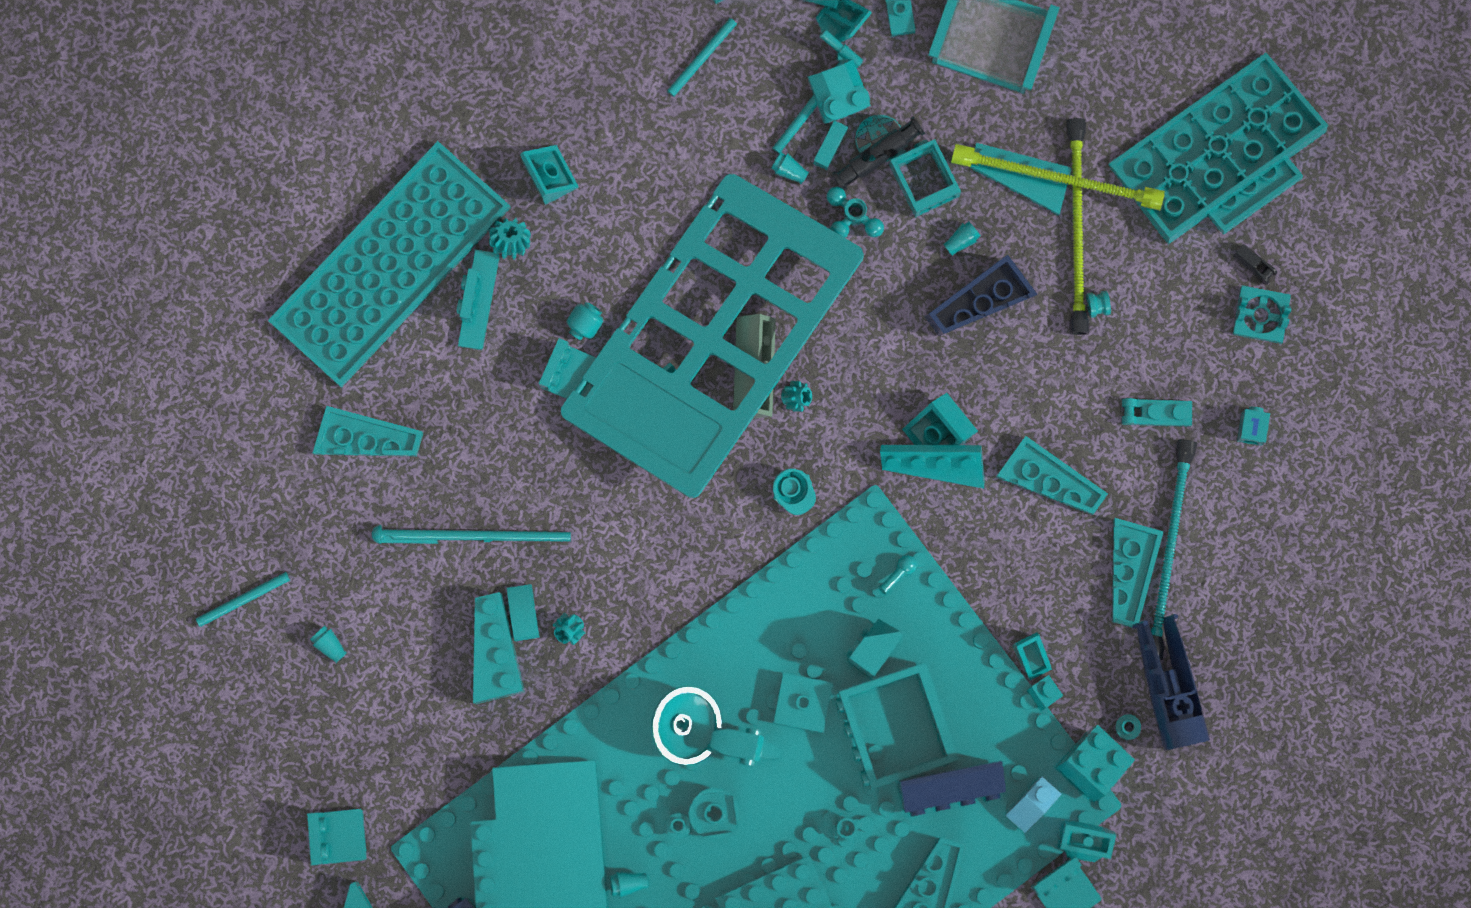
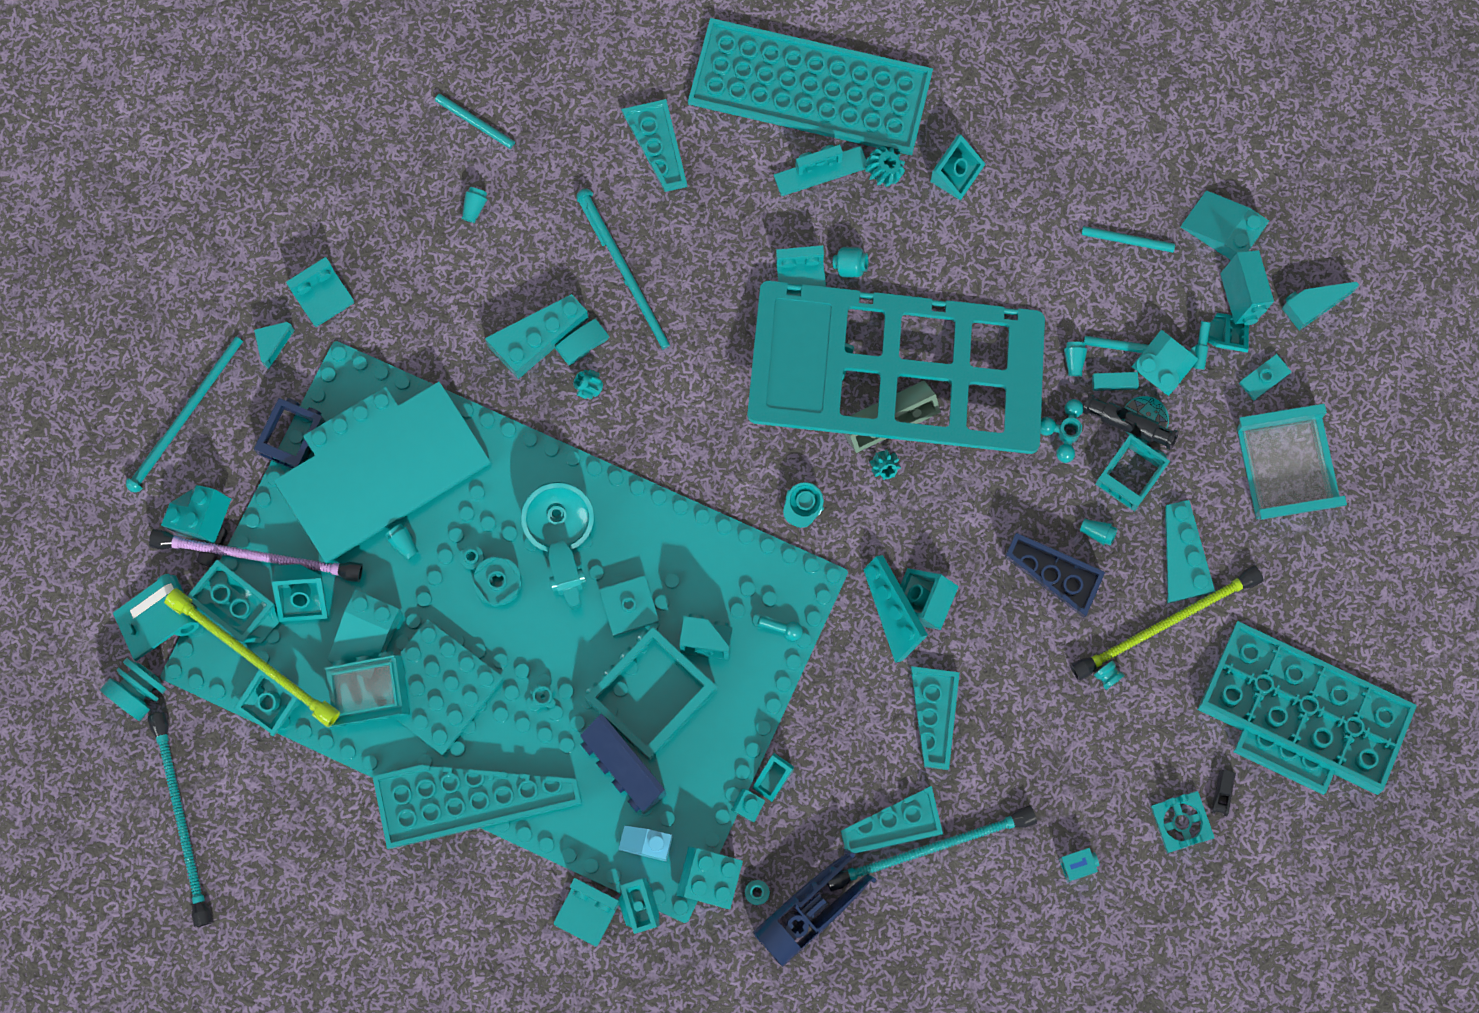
camera: 60 degrees right, 5 degrees down
(1148, 197) = (1225, 667): lime hose -> none
(1157, 412) = (1044, 776): teal plate -> none

